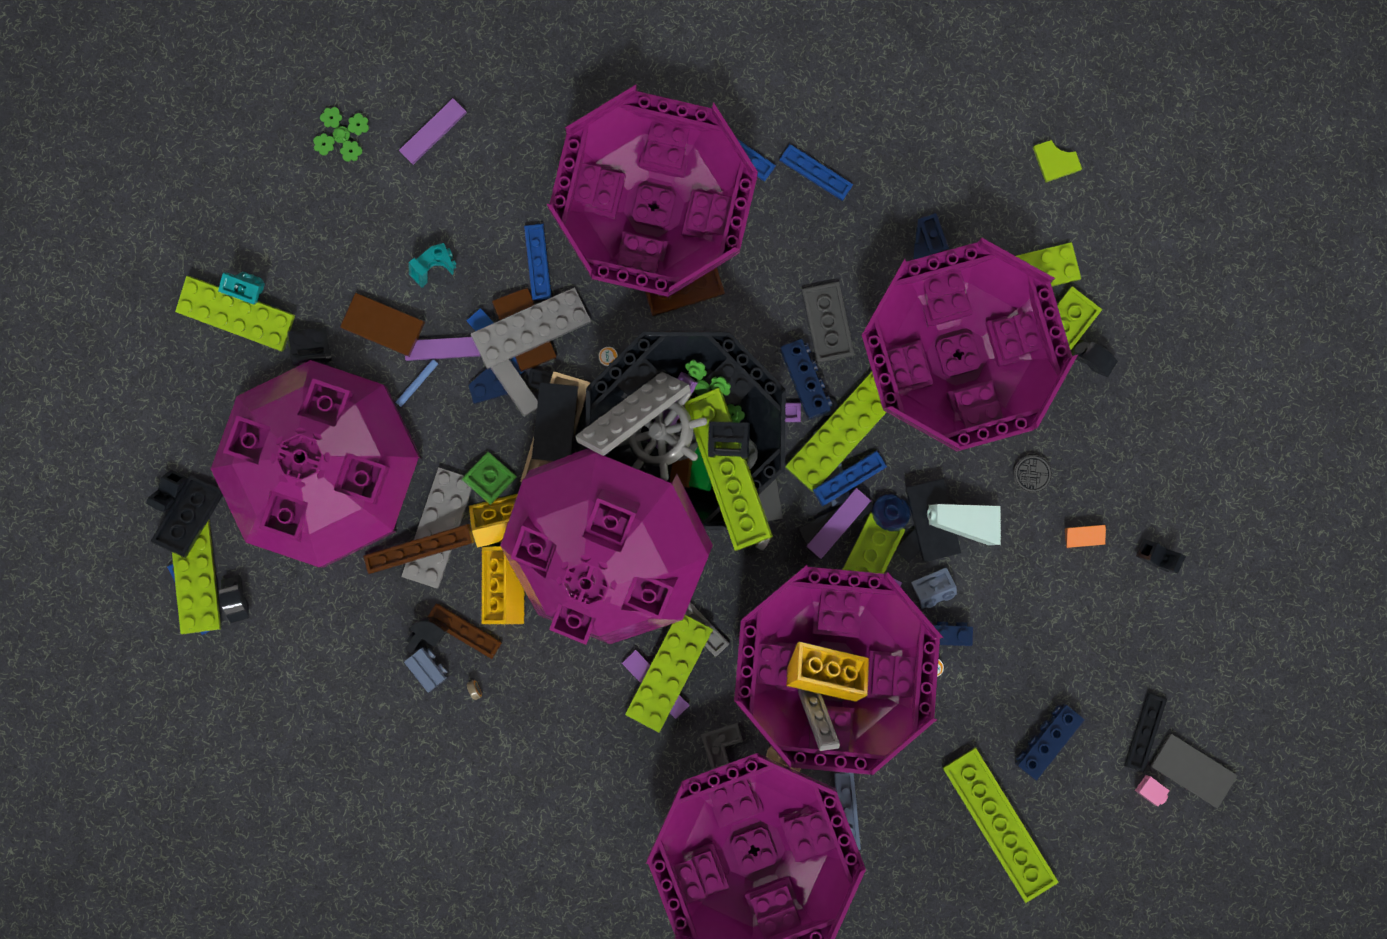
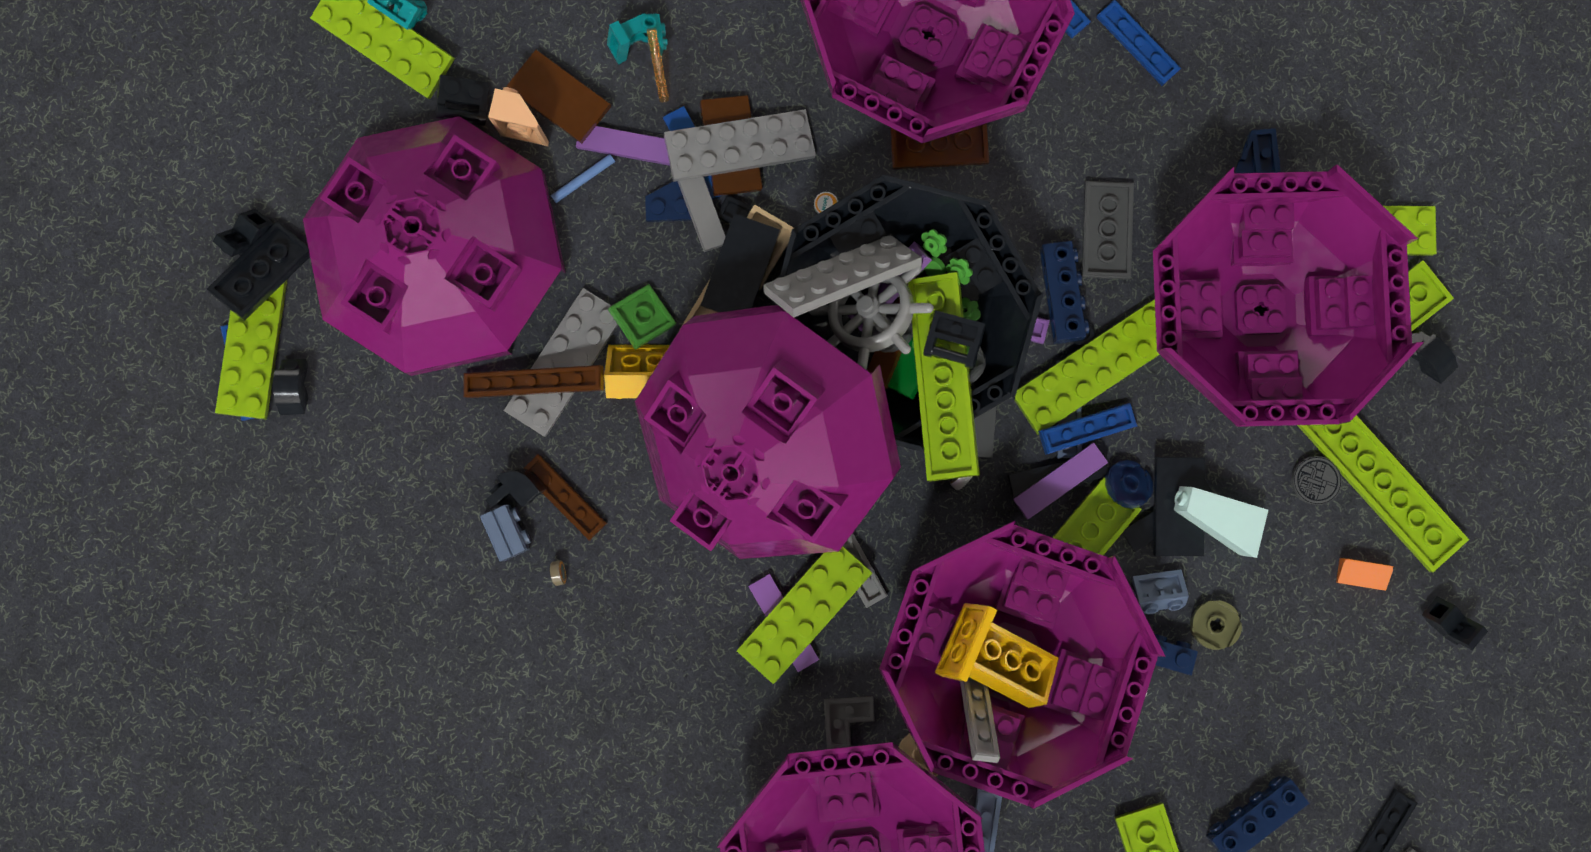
camera: 15 degrees right, 0 degrees up
(353, 351) = (513, 117): none -> light nougat slope
(452, 282) = (657, 64): none -> clear orange bar
(500, 589) = (622, 457): yellow slope -> none
(537, 262) = (768, 67): blue tile -> none
(793, 663) = (965, 641): none -> yellow tile
(992, 596) = (1229, 621): none -> olive plate
(1055, 162) = (1437, 103): lime tile -> none
(1088, 467) = (1389, 490): none -> lime plate

